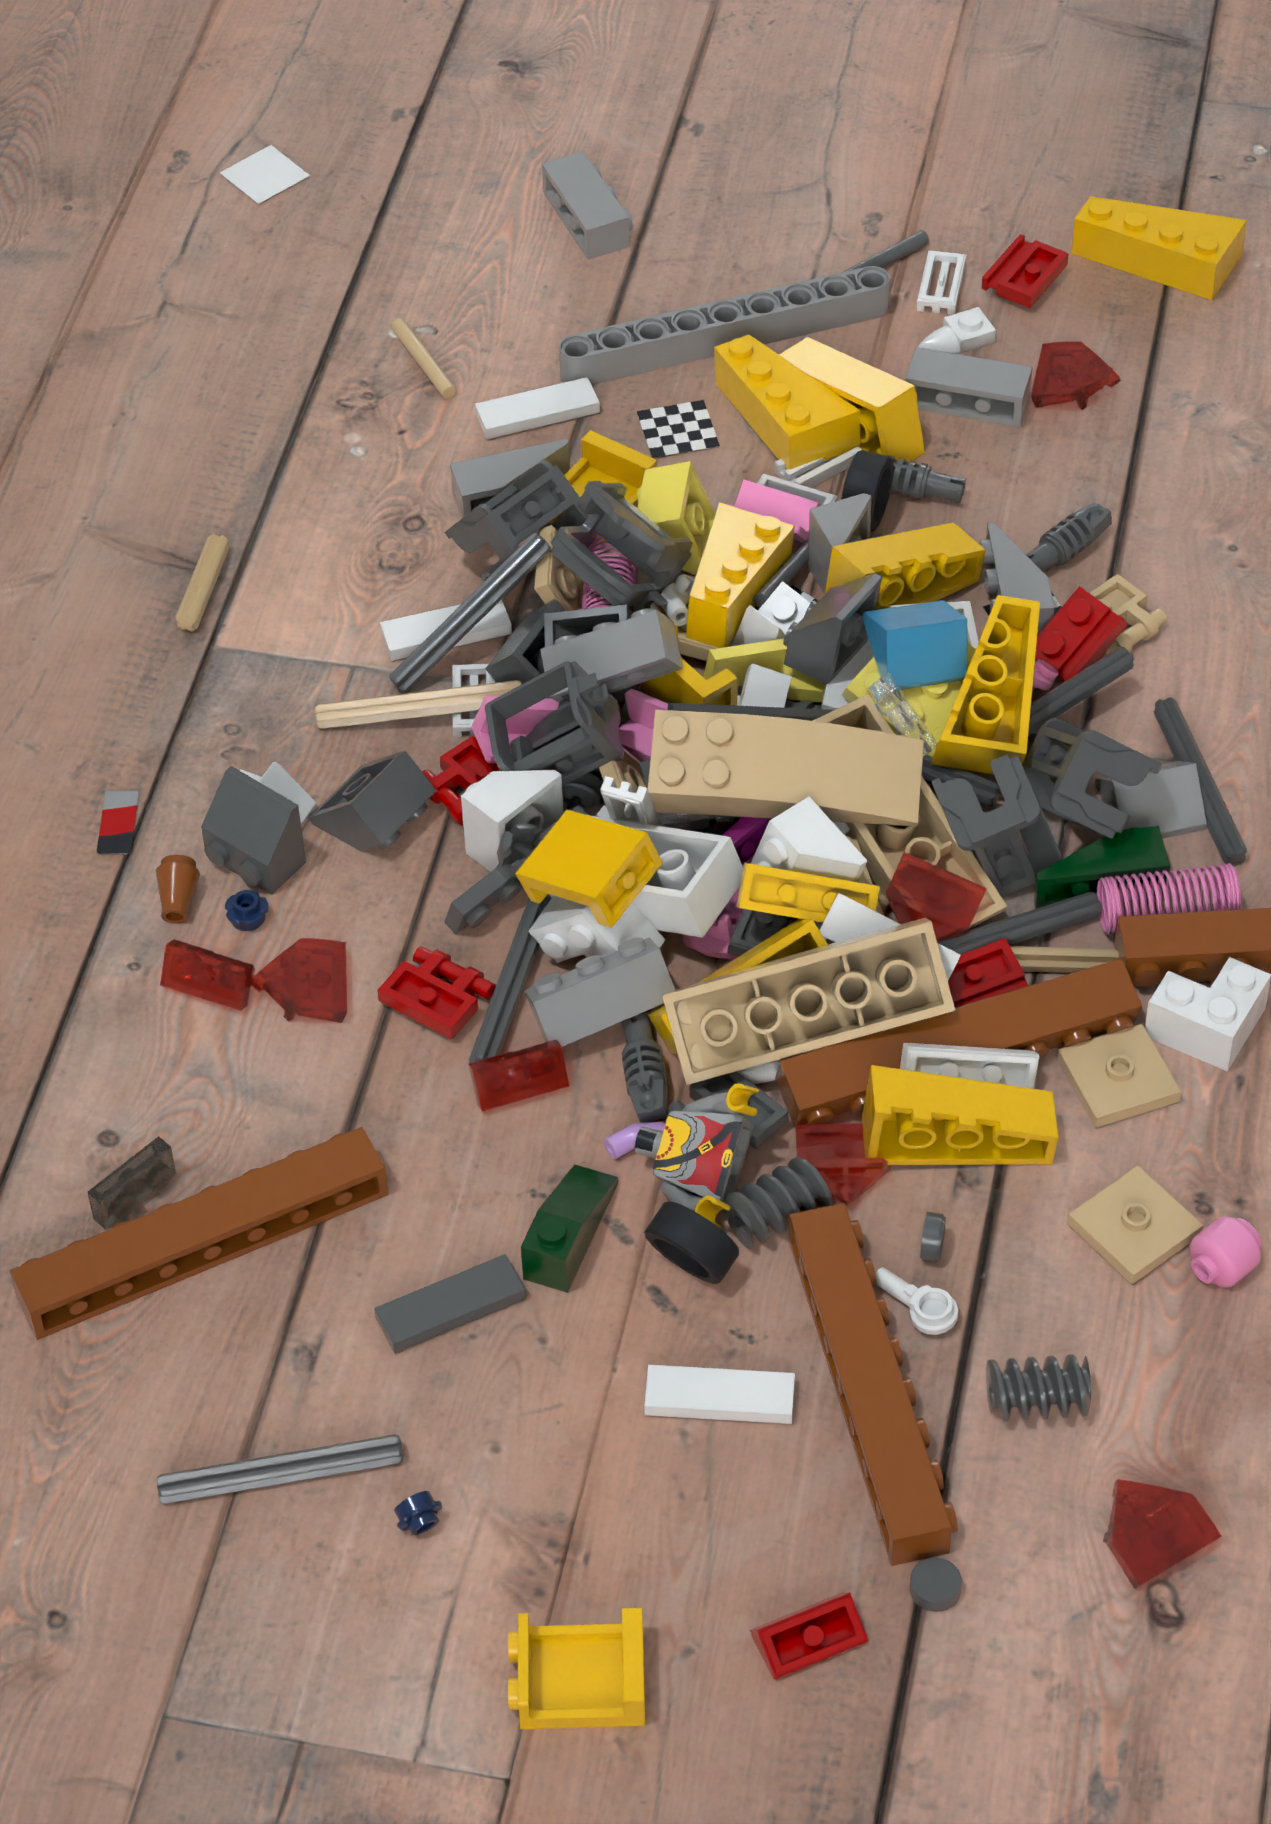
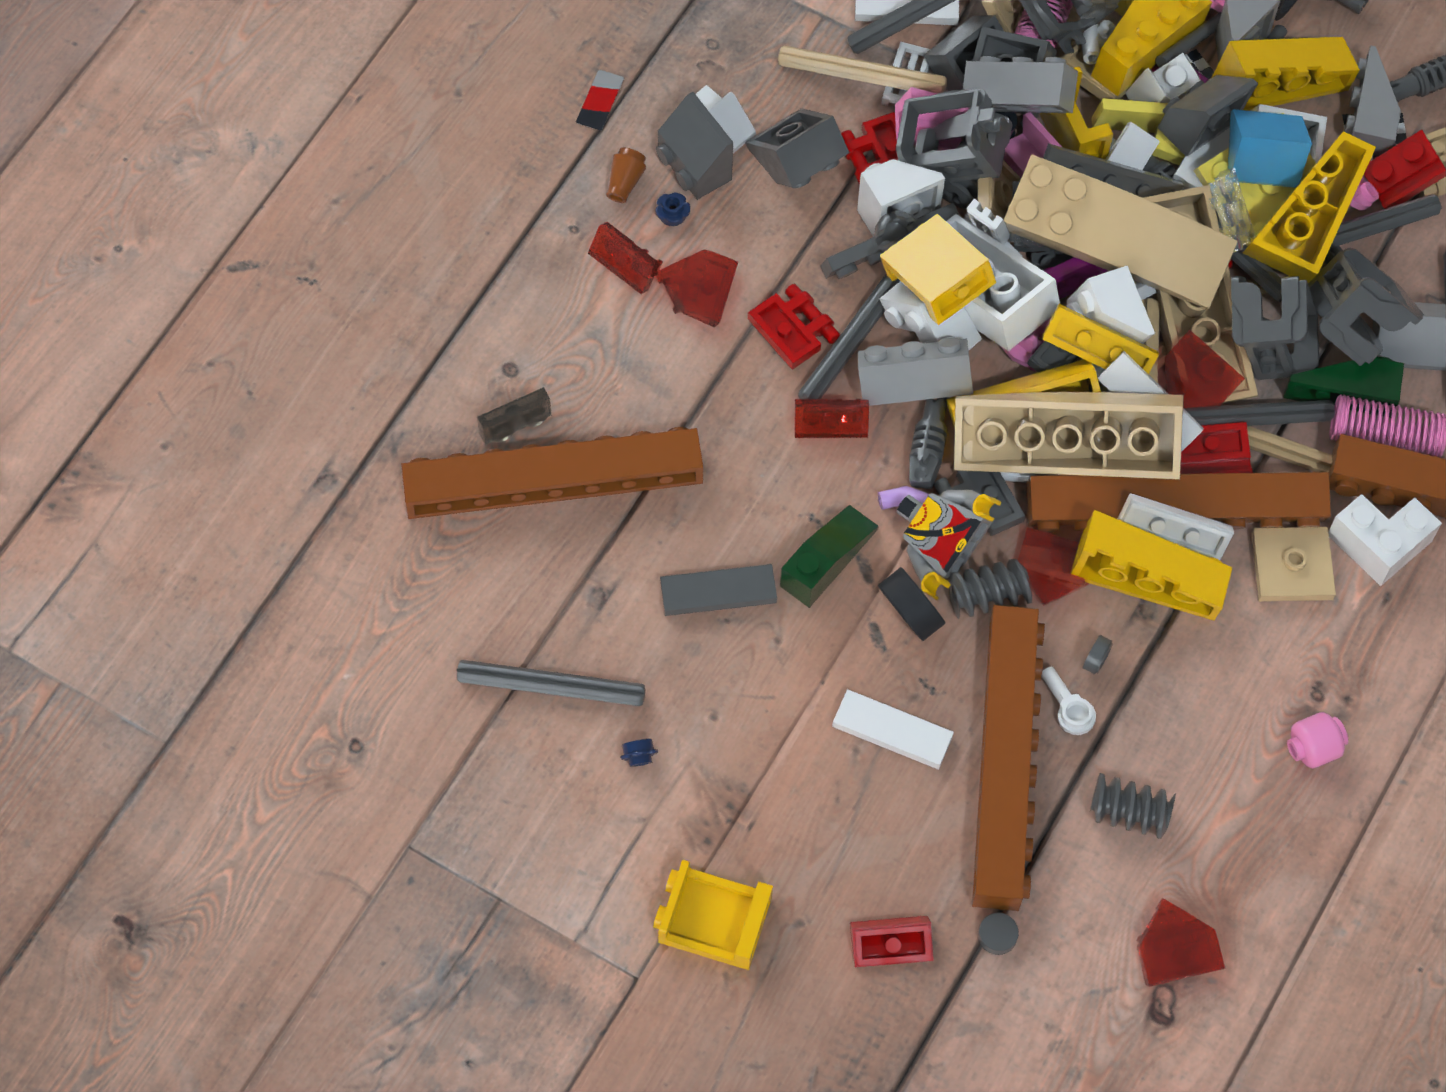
camera: 15 degrees right, 15 degrees up
(1134, 1224) = (1257, 693): tan plate -> none

